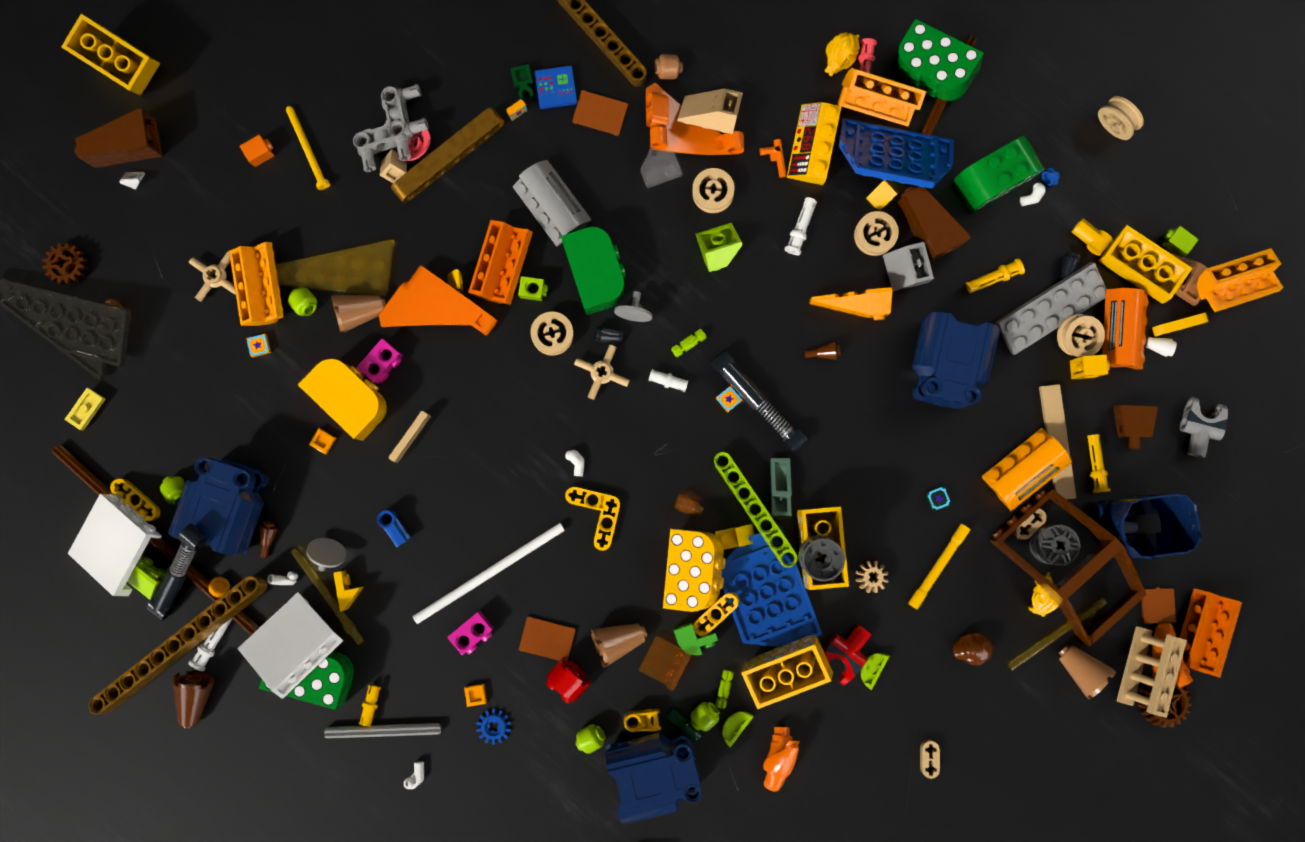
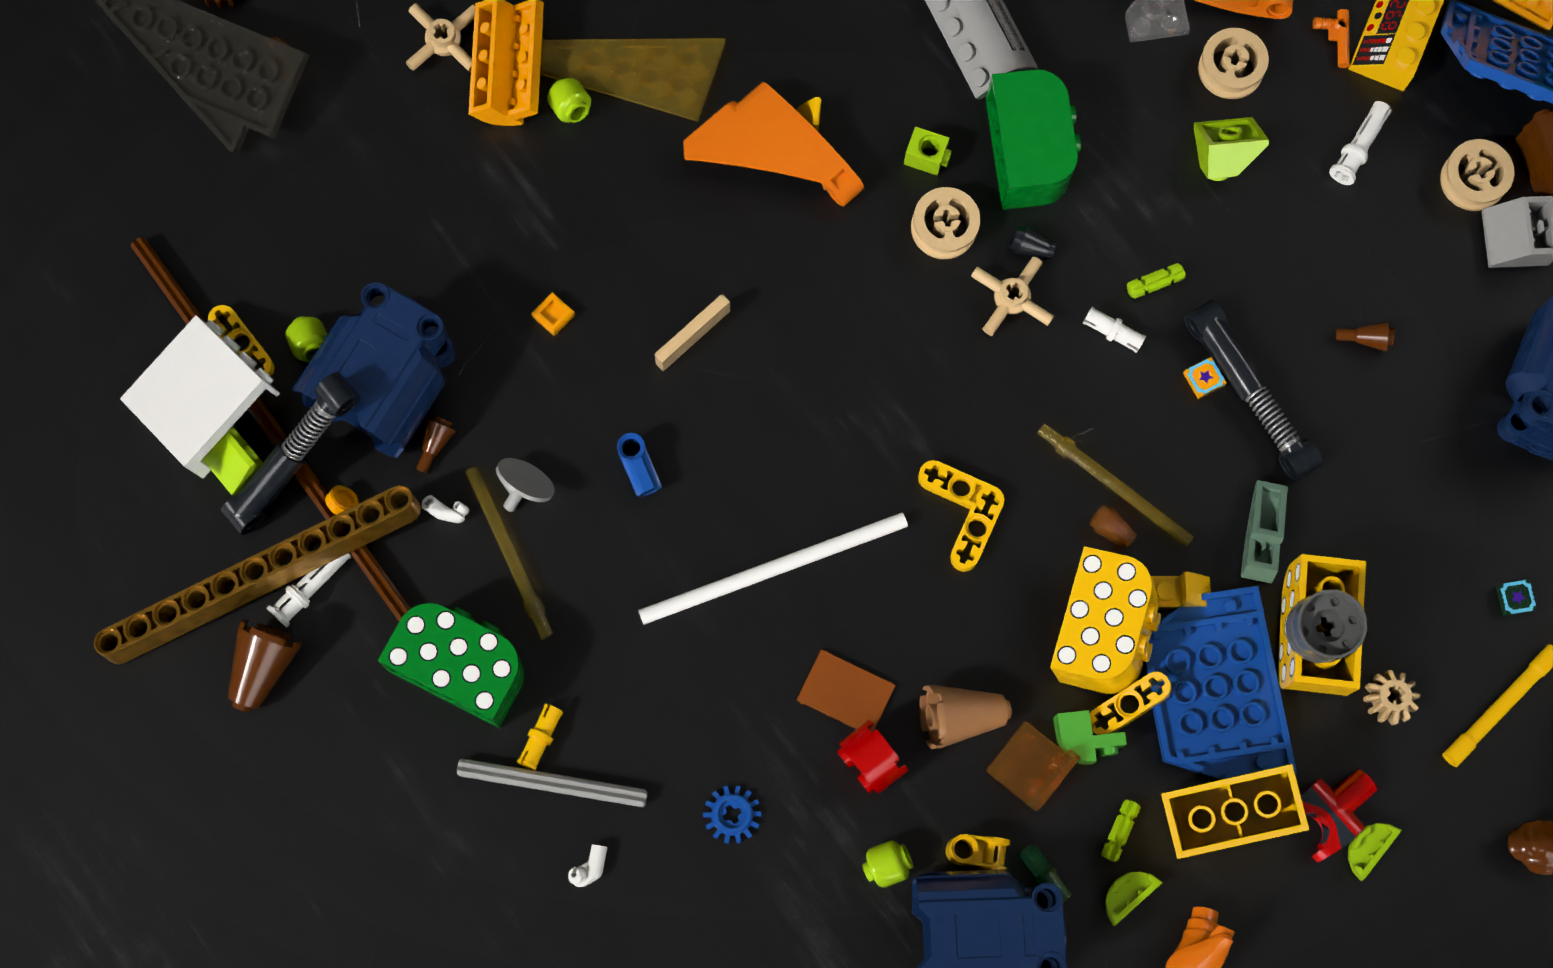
camera: 10 degrees right, 10 degrees down
(85, 409) = (197, 191): light yellow plate -> none
(258, 345) = (485, 152): light orange tile -> none
(289, 645) = (443, 603): white panel -> none
(345, 595) = (541, 554): yellow slope -> none
(346, 397) = (607, 248): yellow brick -> none
(356, 309) = (649, 126): medium nougat cone -> none
(376, 357) = (664, 206): dark pink brick -> none
(468, 629) = (723, 648): dark pink brick -> none
(475, 695) = (713, 757): light orange tile -> none
(500, 262) = (886, 102): orange brick -> none
(575, 457) = (949, 425): white arm -> none
(635, 311) = (1080, 213): light grey shield -> none
(652, 461) = (1066, 447): none -> clear yellow bar
(705, 716) = (1082, 866): lime head -> none
(753, 499) = (1221, 565): lime beam -> none
(869, 304) = (1446, 275): light orange wedge -> none
(885, 193) = (1501, 117): yellow slope -> none

